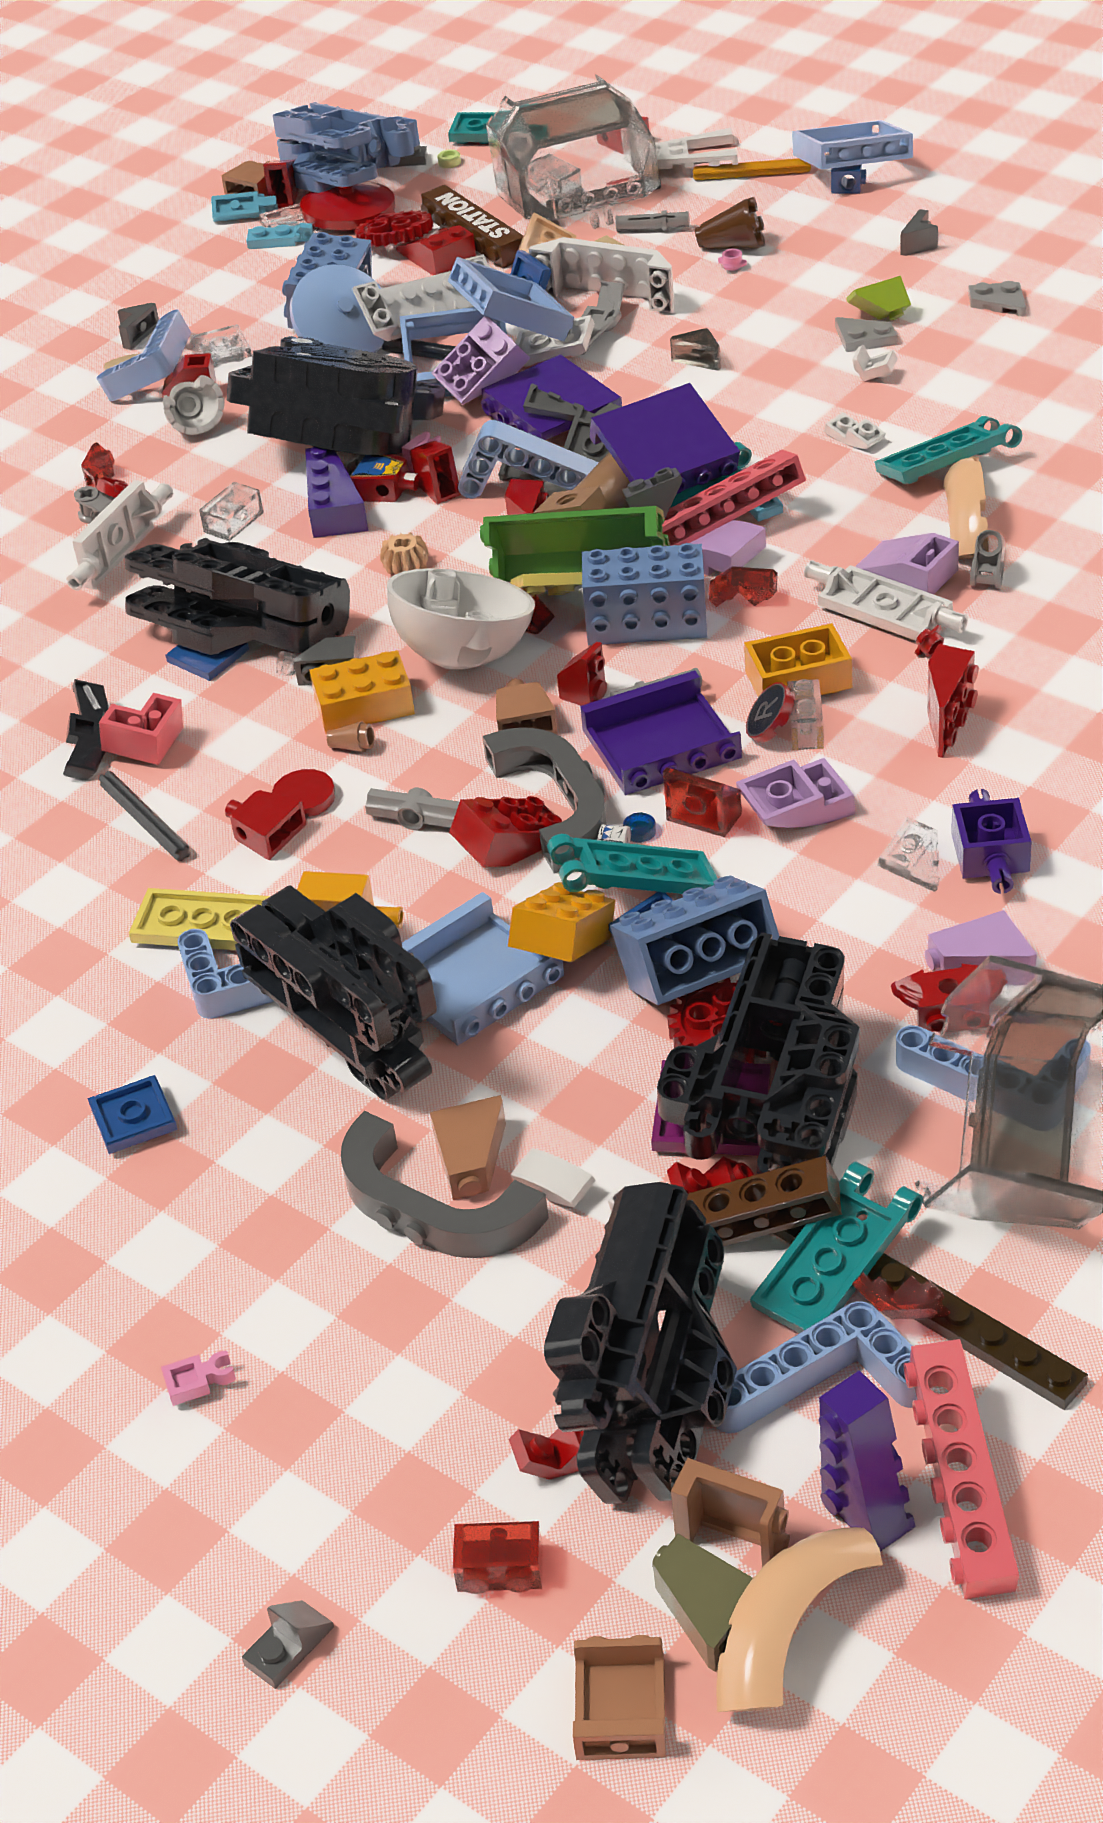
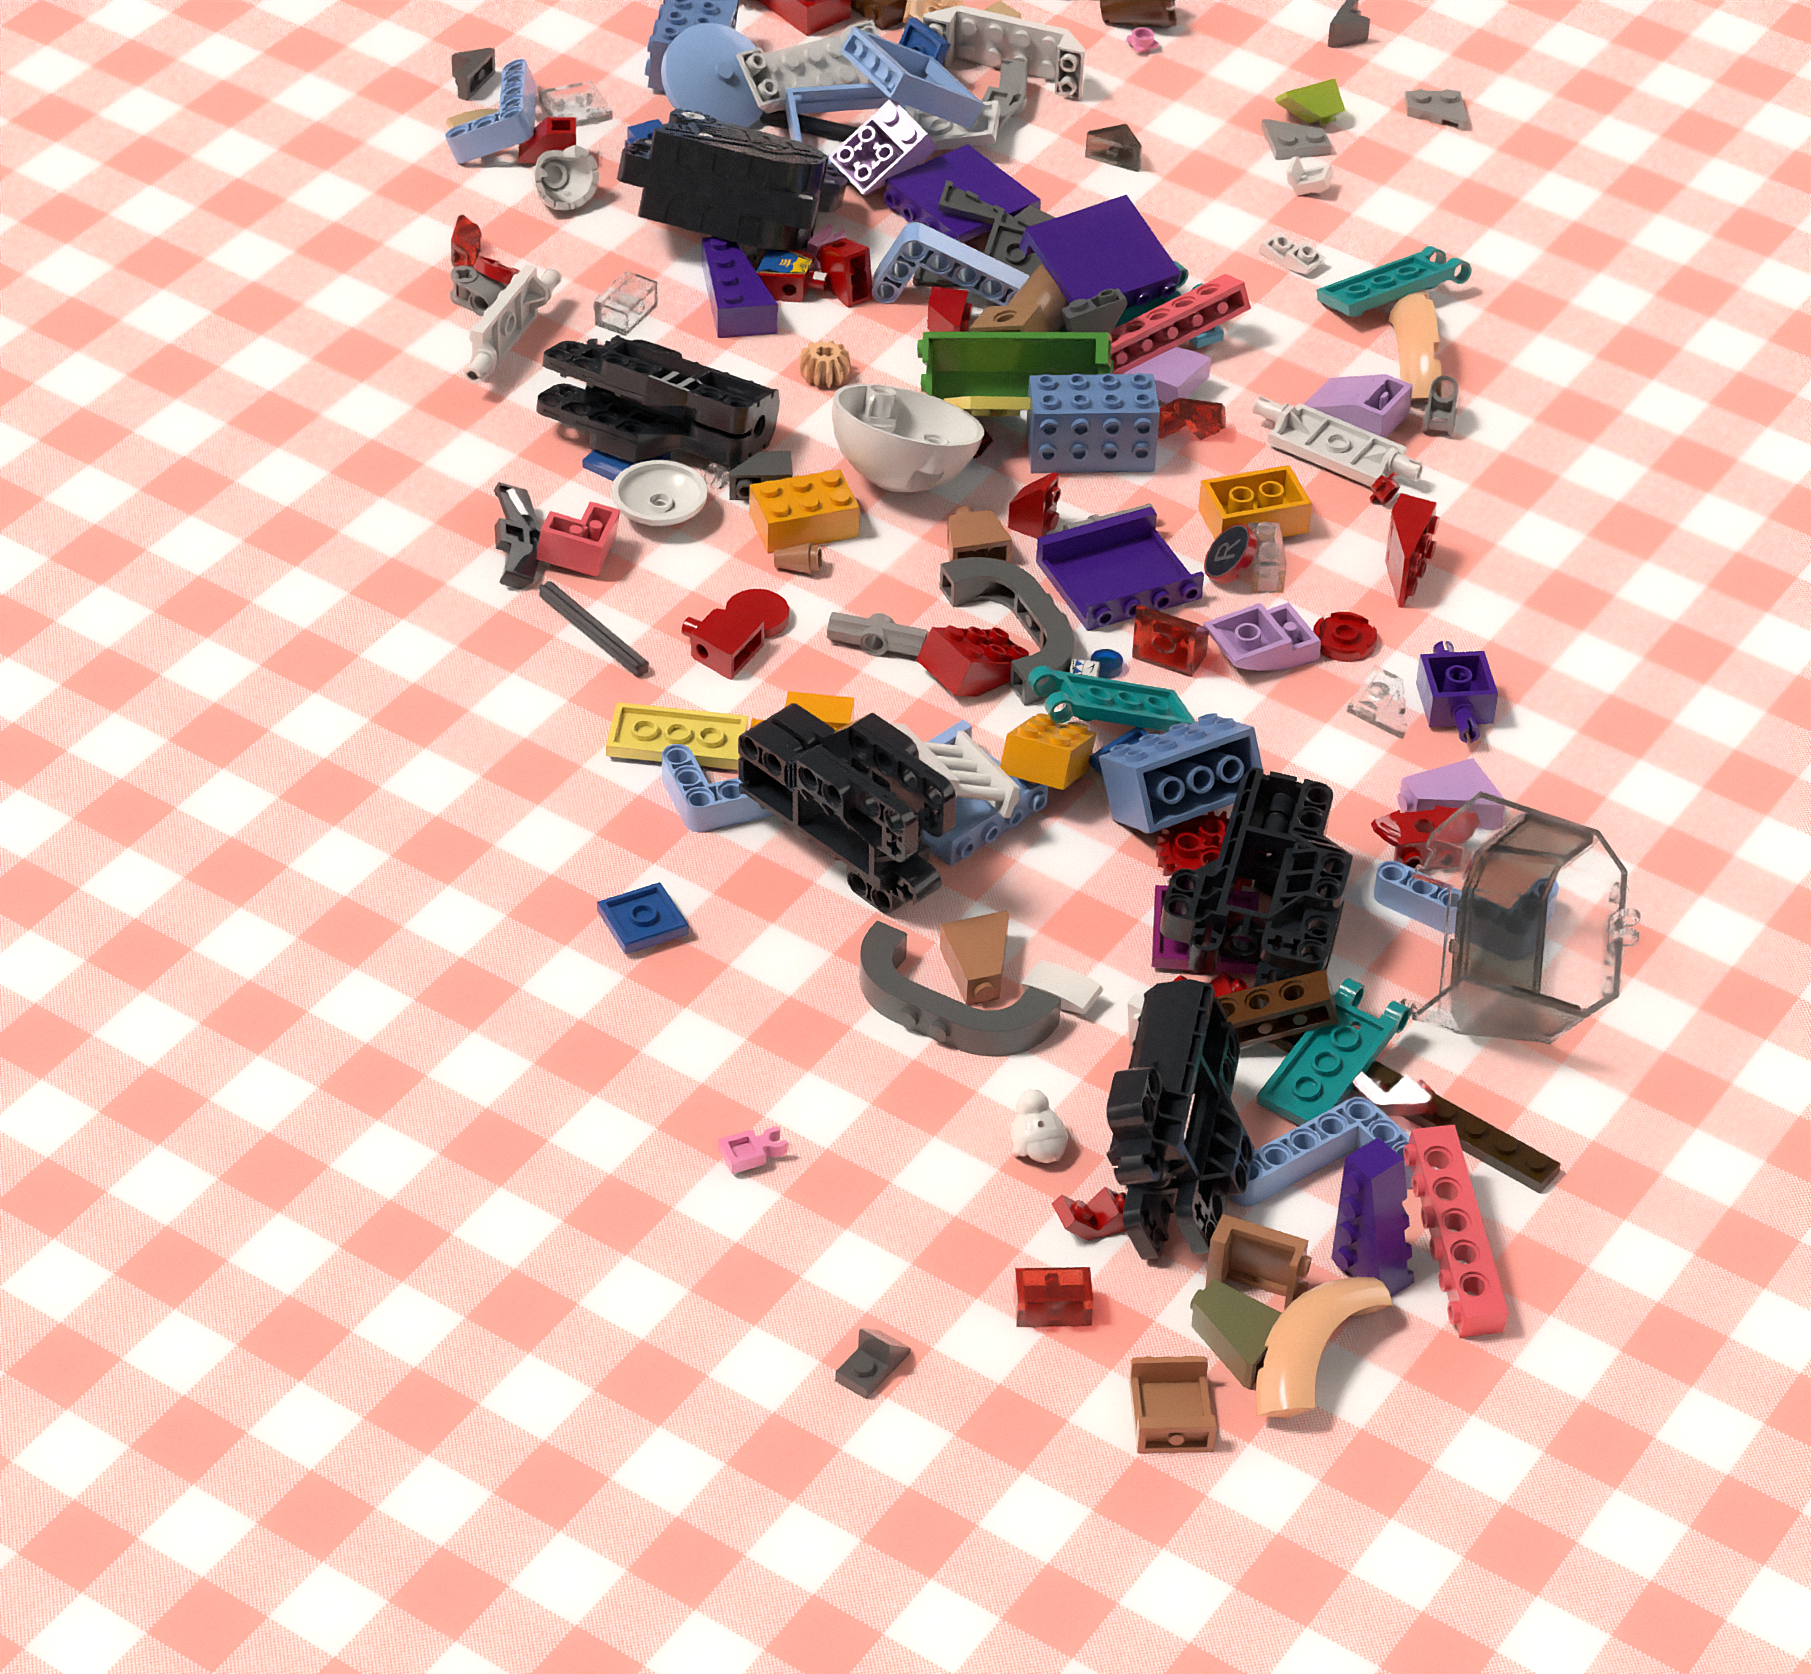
camera: 10 degrees left, 0 degrees up
(225, 681) = (659, 492): none -> white dish
(428, 942) = (968, 770): none -> white fence
(509, 1364) = (1037, 1129): none -> white piece
(882, 789) = (1345, 636): none -> red tile

